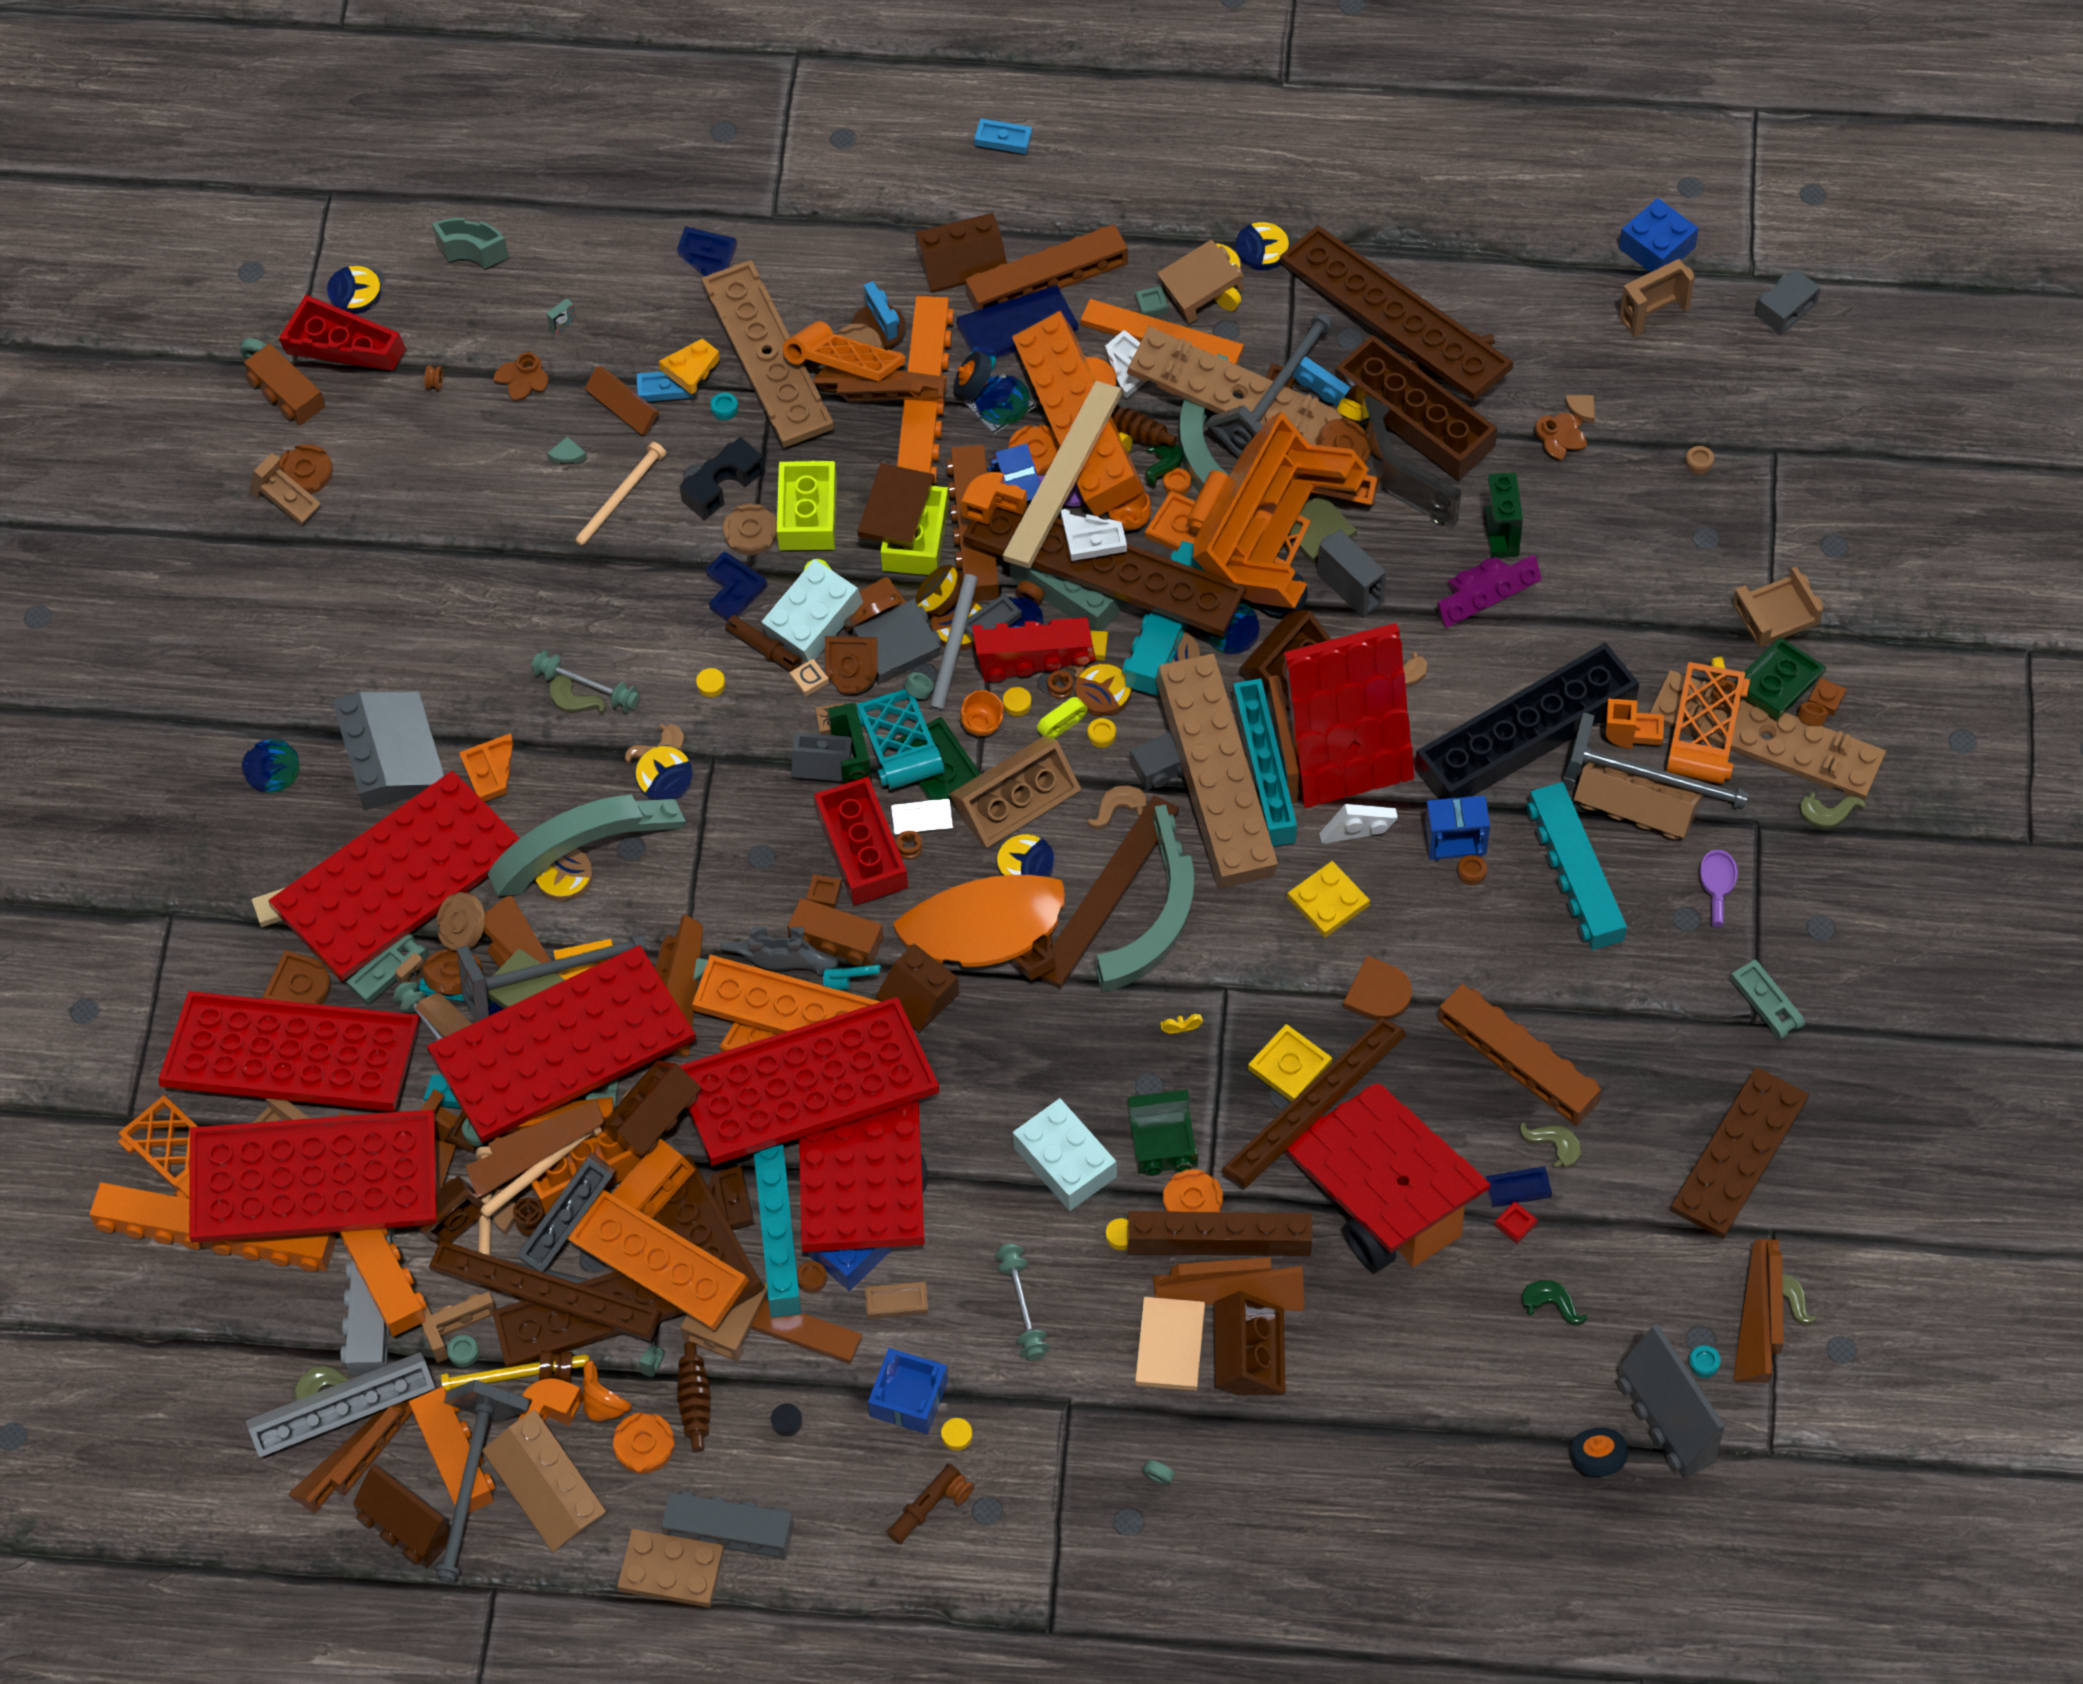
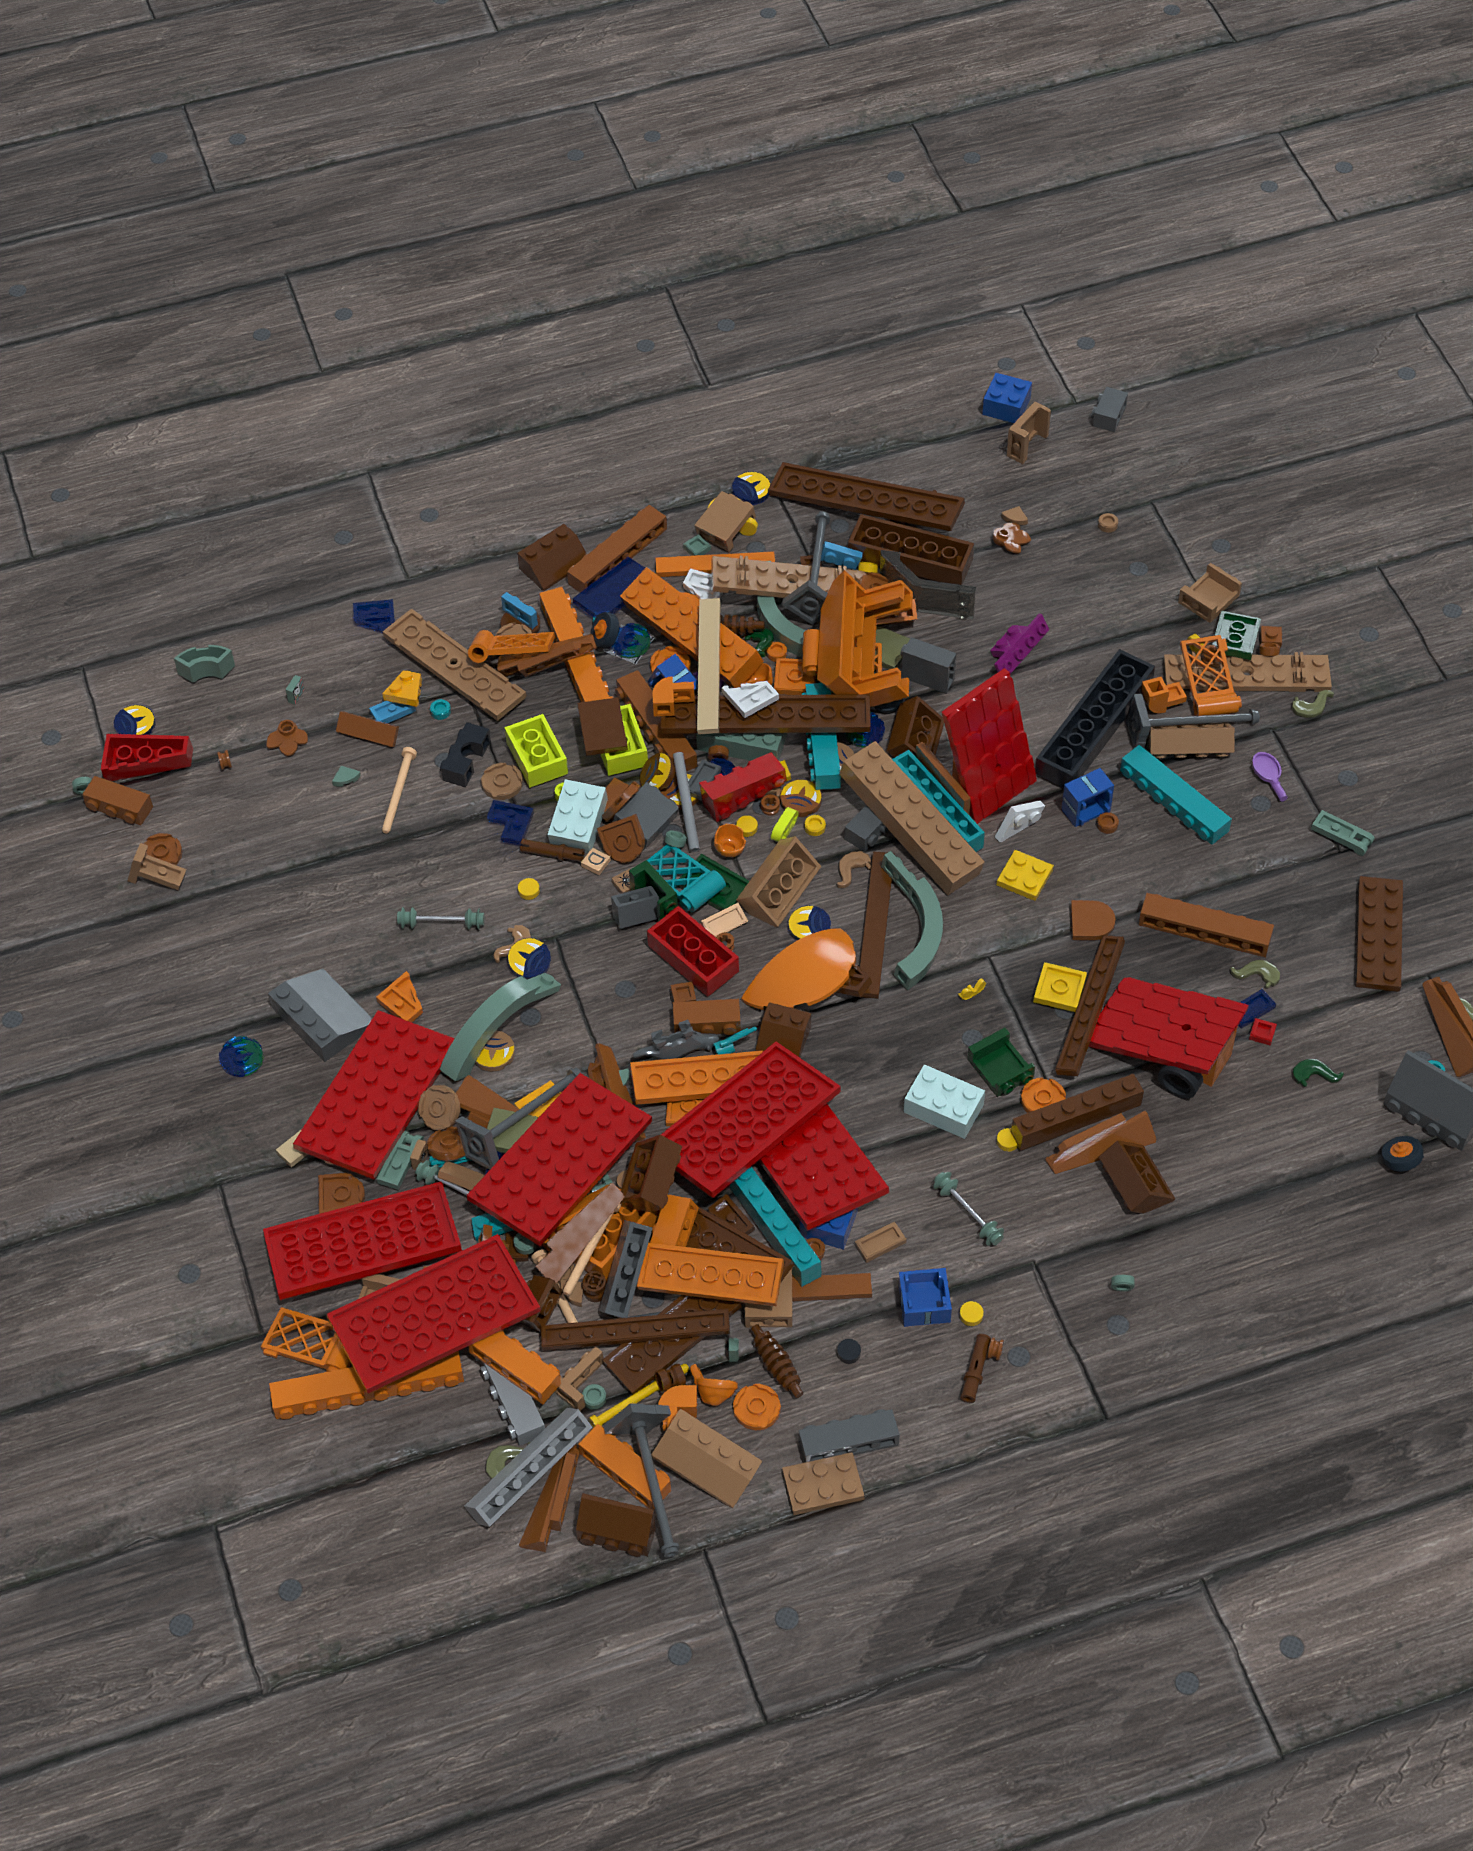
camera: 25 degrees left, 5 degrees down
(565, 700) = (431, 937): olive piece -> none
(1003, 136) = (540, 477): dark azure plate -> none
(1170, 1343) = (1081, 1197): light nougat tile -> none
(1504, 516) = (1012, 597): dark green panel -> none

